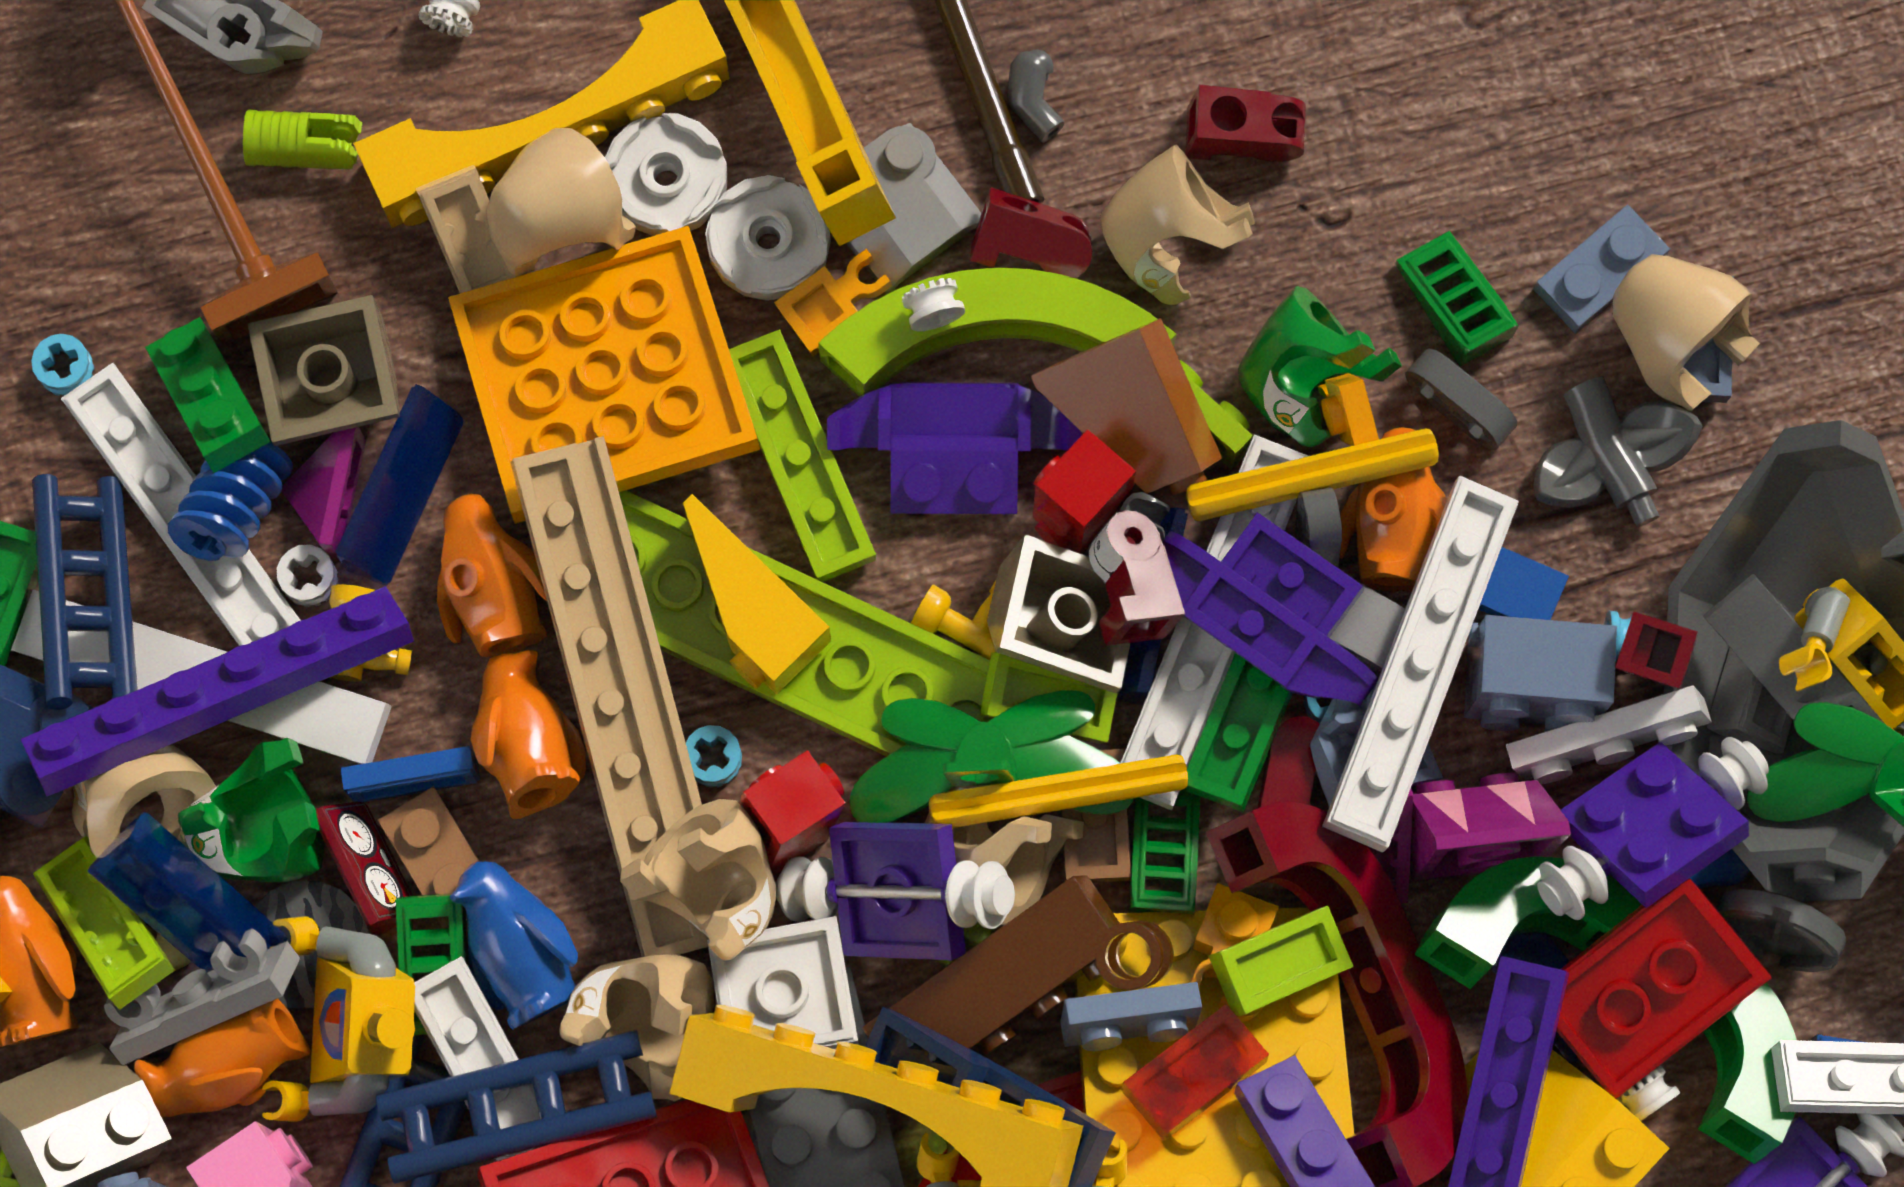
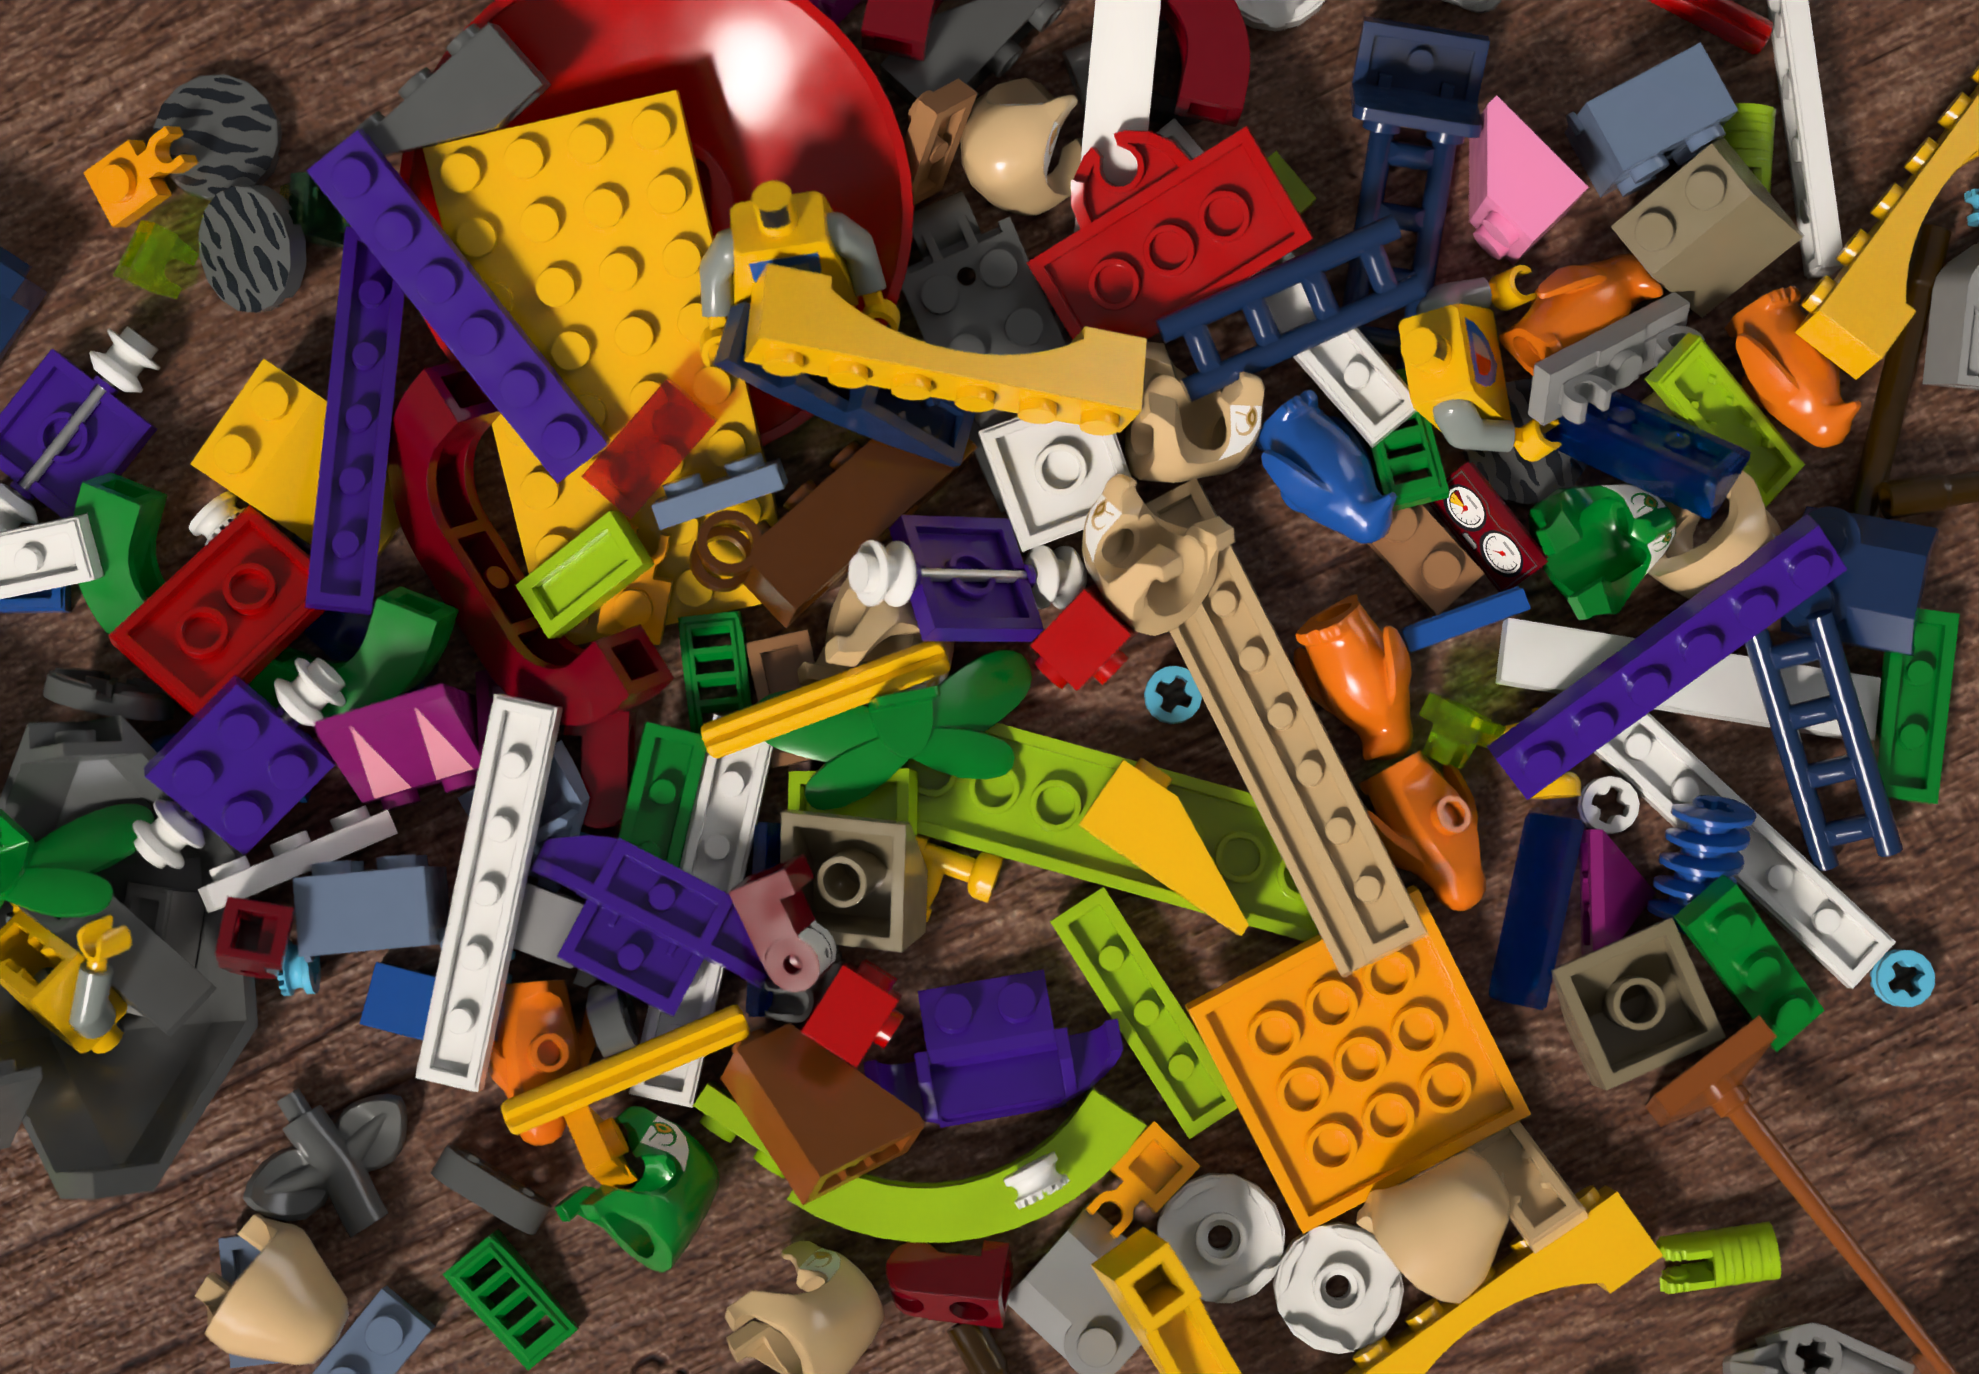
camera: 175 degrees right, 10 degrees up
(438, 668) = (1456, 730): none -> clear neon green tile

